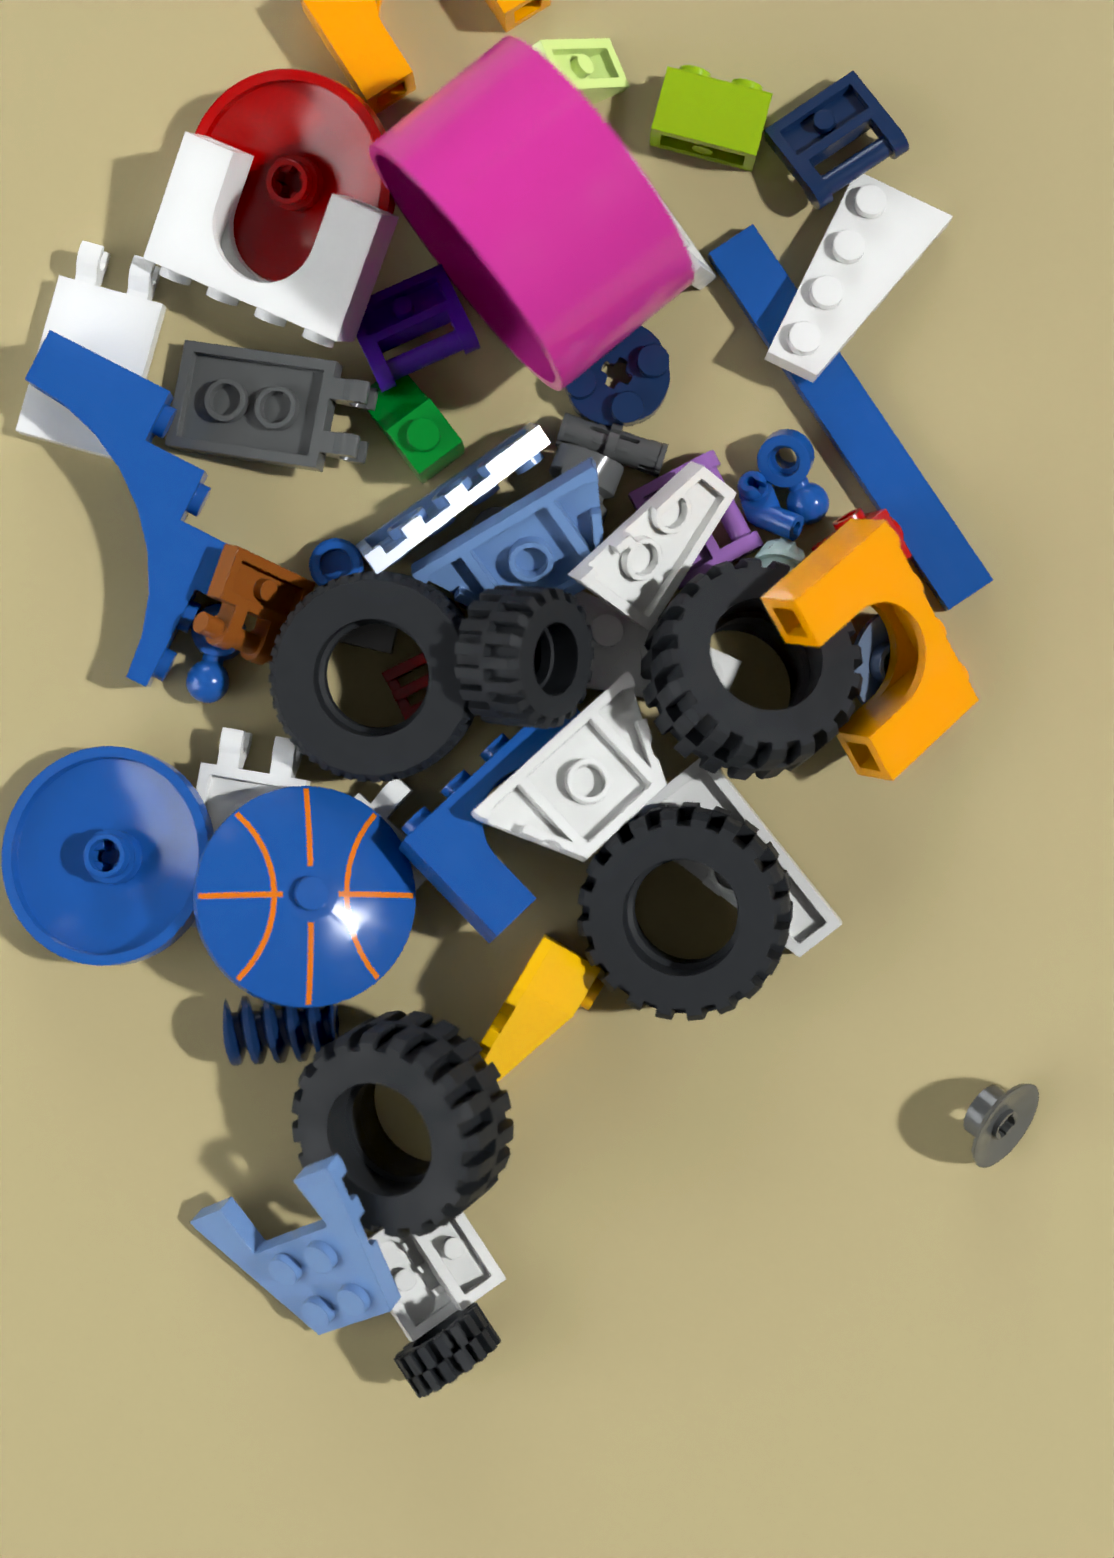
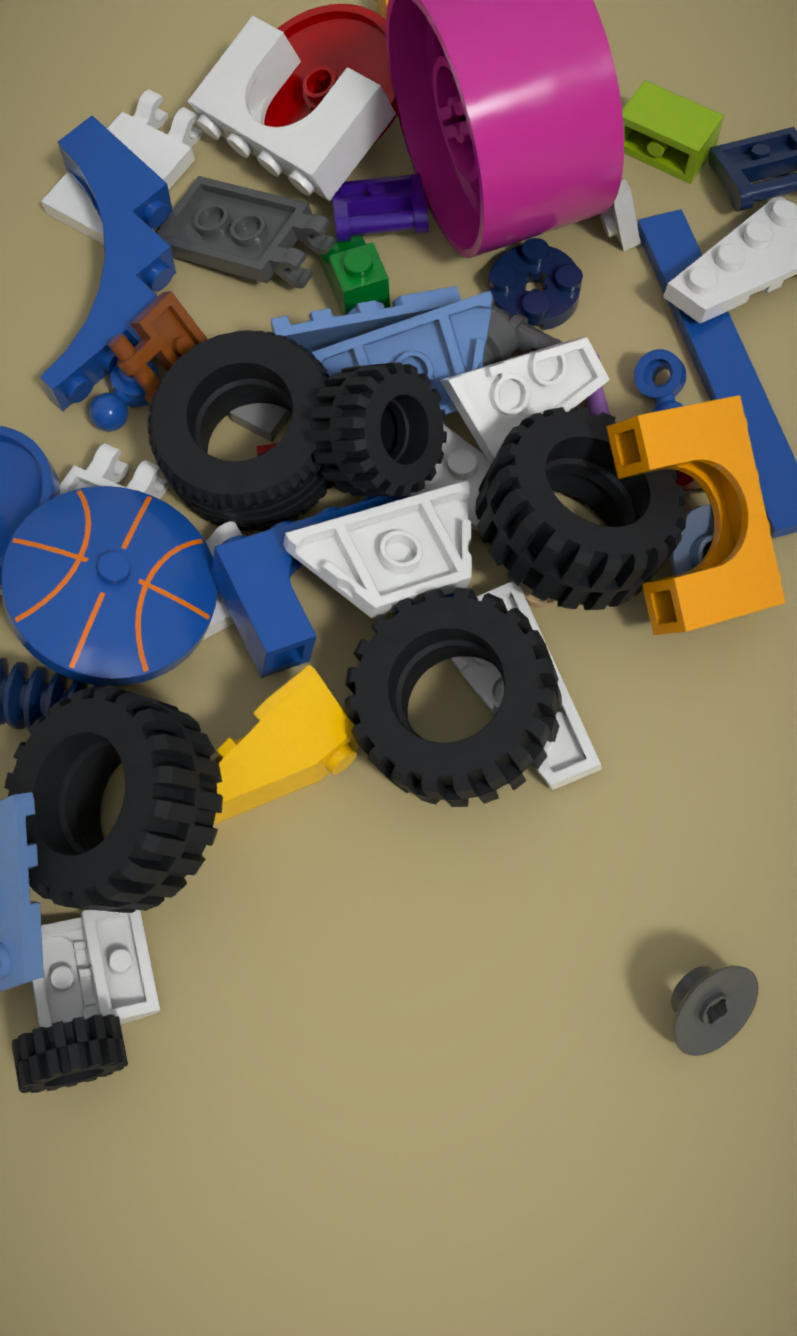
camera: 20 degrees right, 20 degrees down
(763, 507) = (626, 399): blue arm -> none

